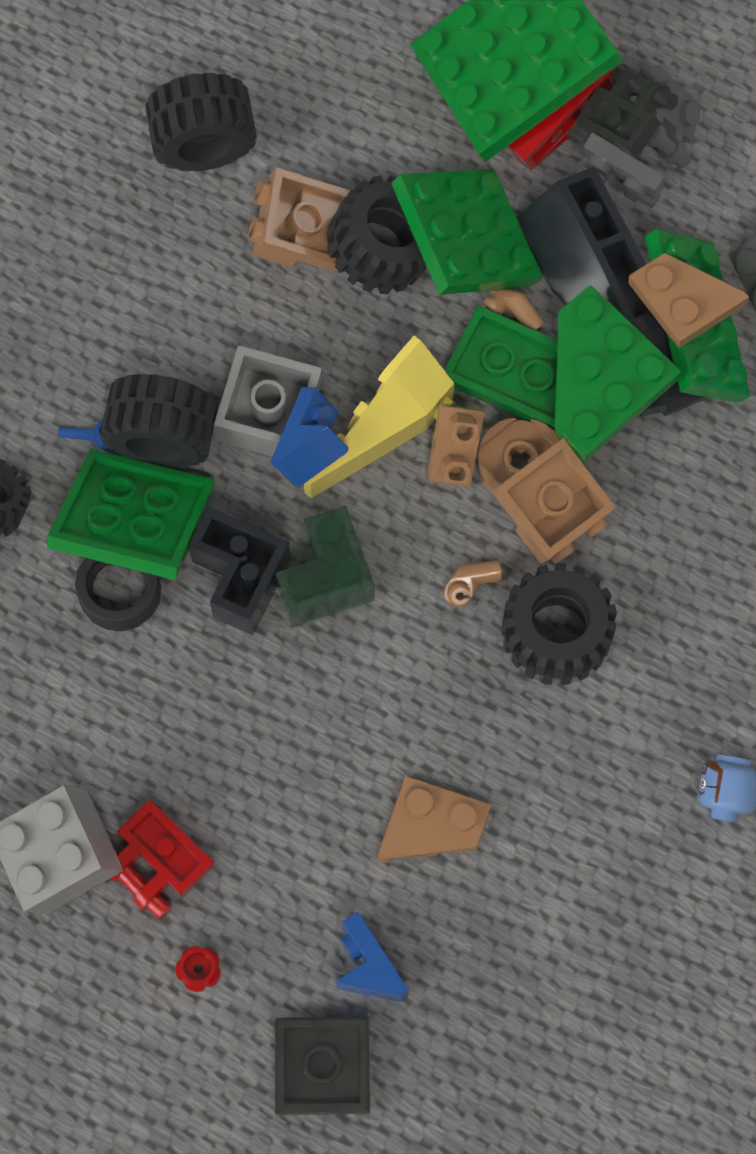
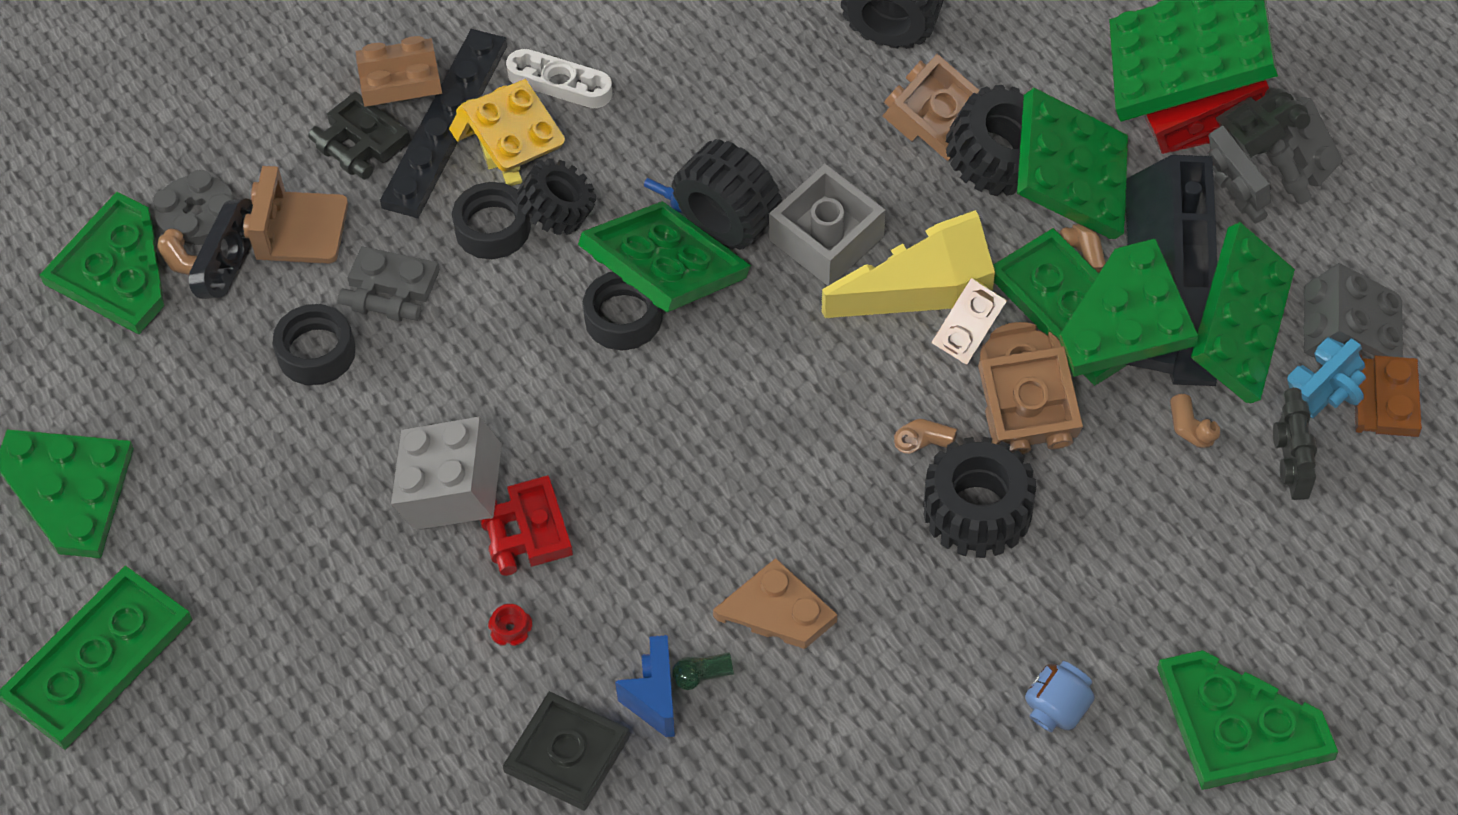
camera: 30 degrees right, 15 degrees down
(247, 565) = (734, 335): black brick -> none
(307, 439) = (840, 253): blue slope -> none
(336, 576) = (800, 378): clear green brick -> none
(391, 928) = (692, 670): none -> clear green arm
(684, 297) = (1234, 281): medium nougat wing -> none
(701, 455) = (1198, 433): none -> medium nougat arm

